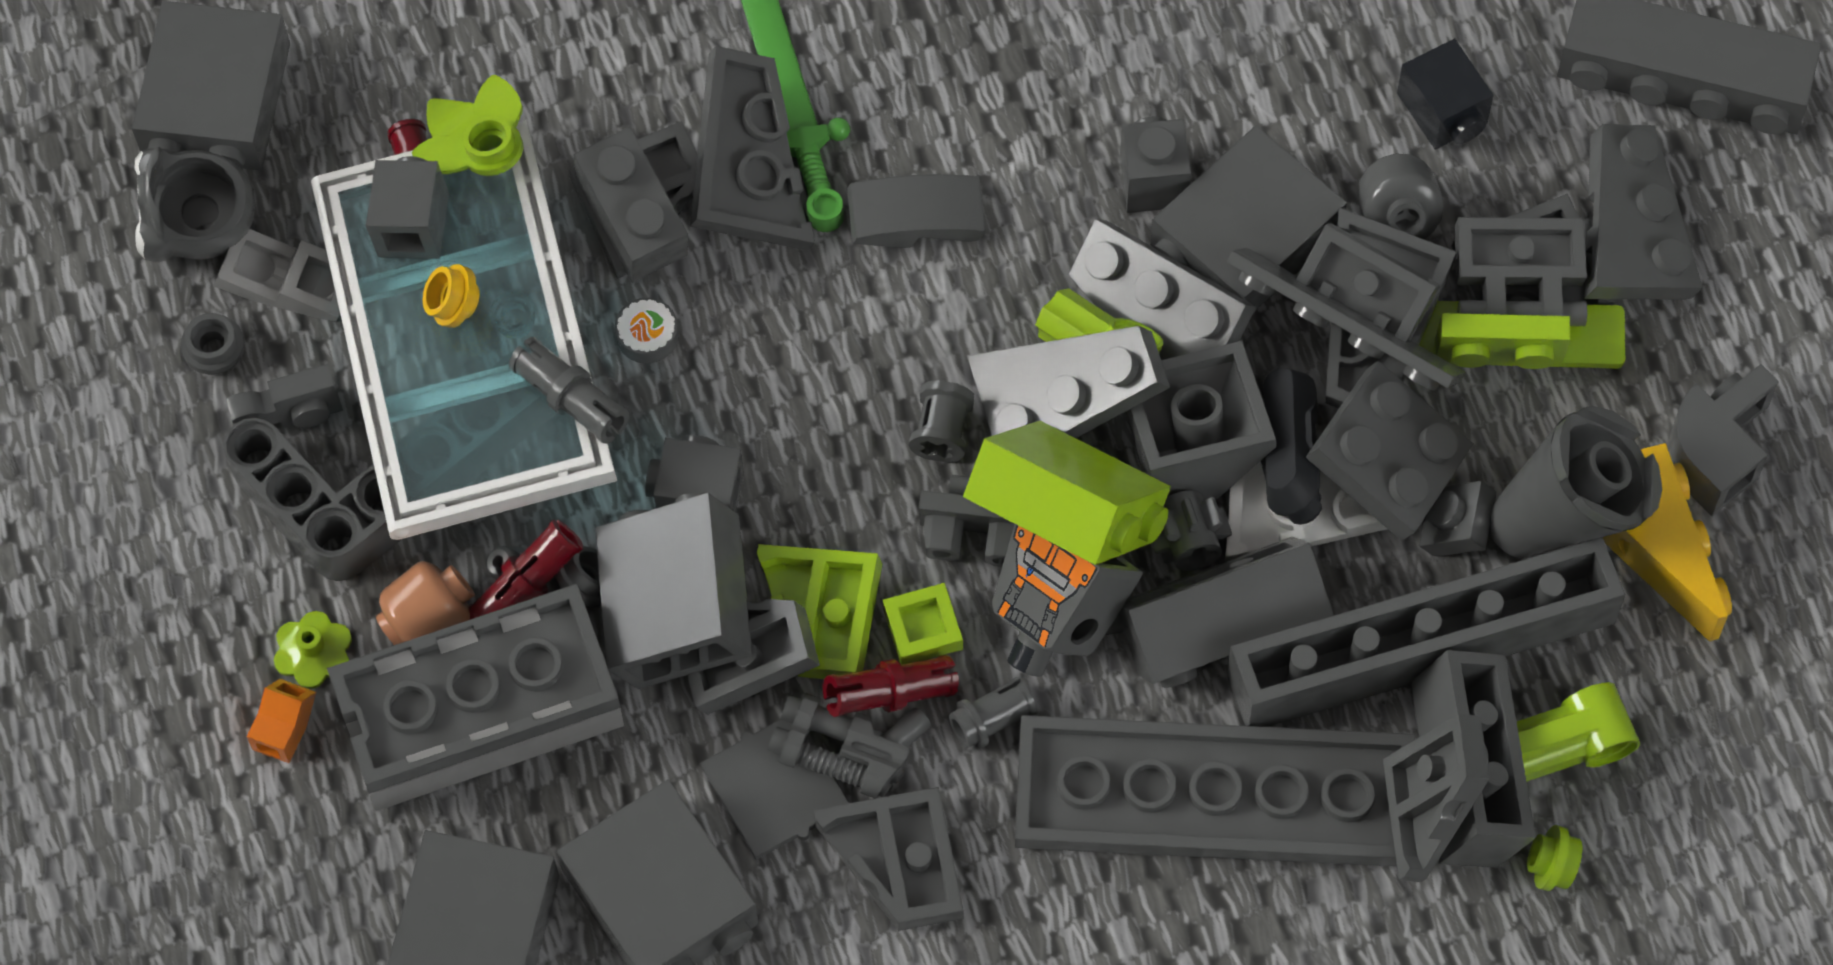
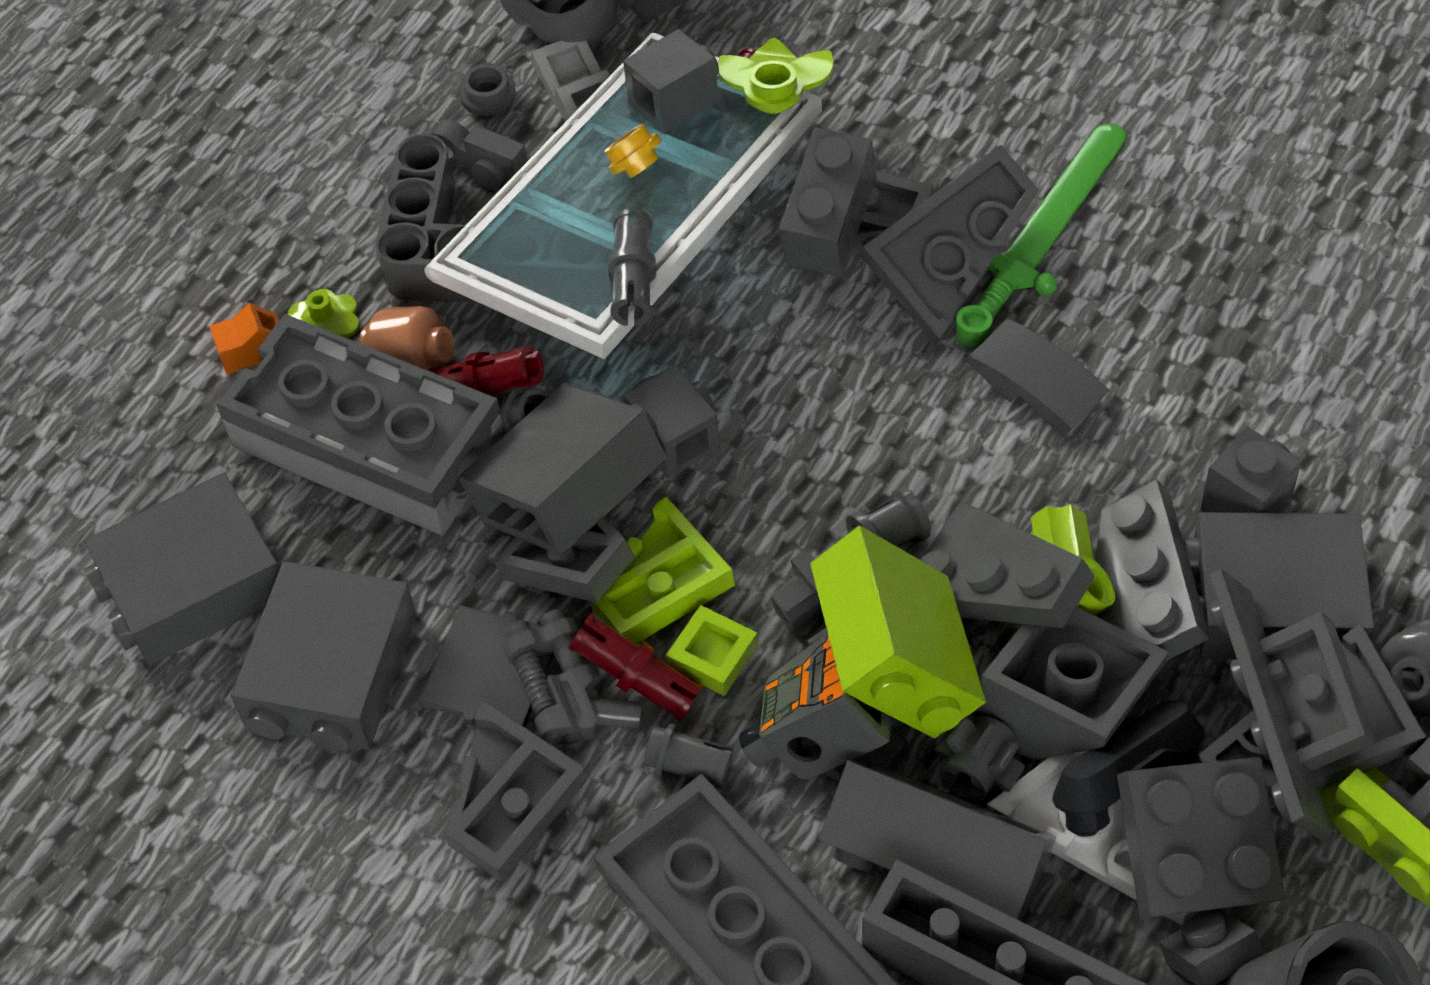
camera: 50 degrees right, 10 degrees down
(646, 330) = (761, 303): tile -> none

